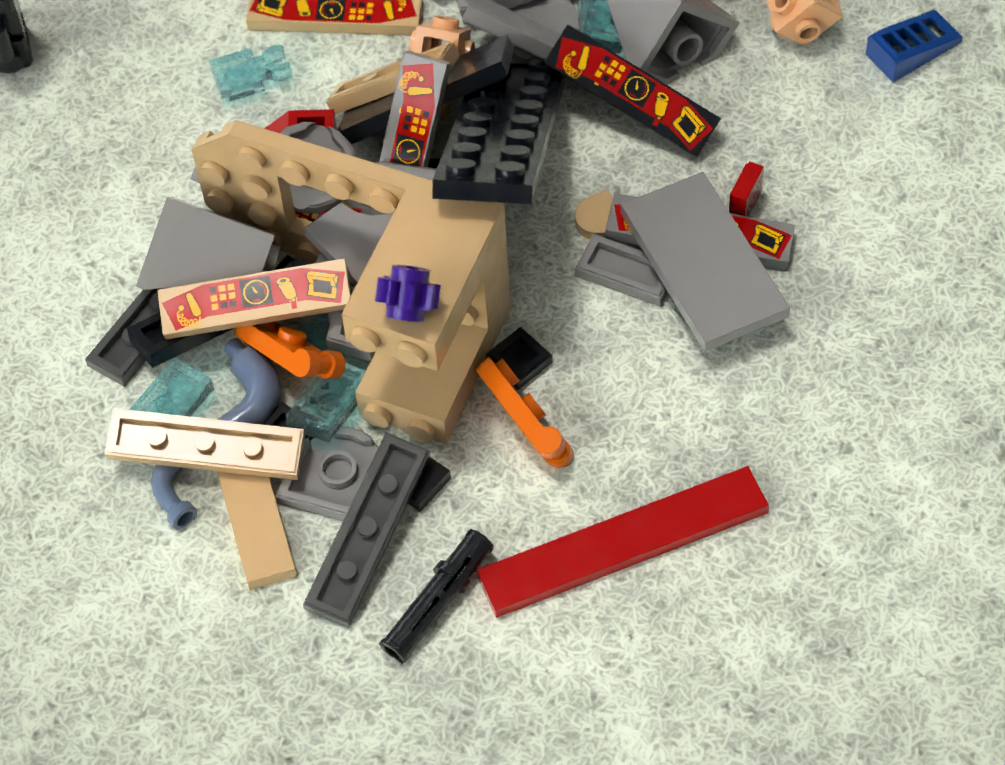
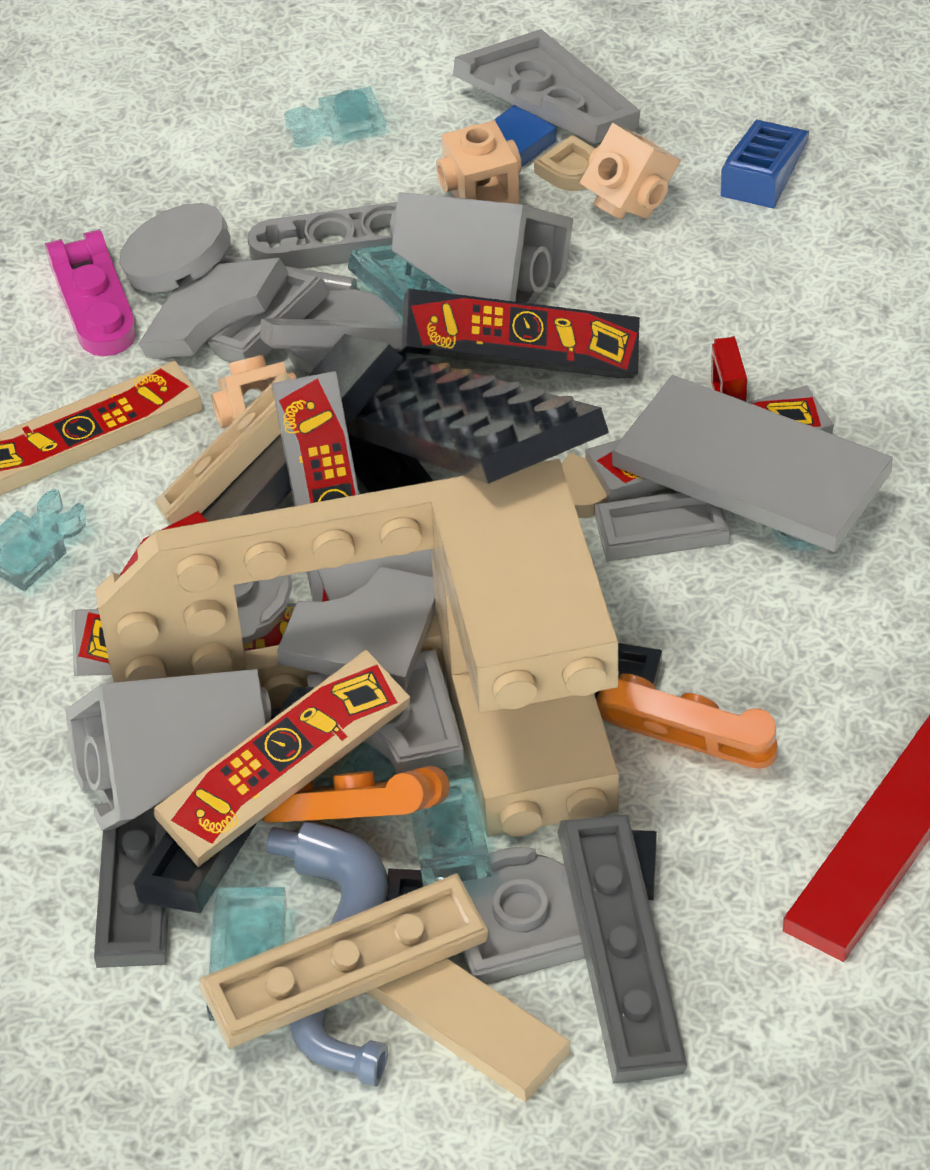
camera: 35 degrees left, 10 degrees down
(407, 293) = (553, 592): dark purple gear -> none
(453, 578) = (762, 947): black pin -> none

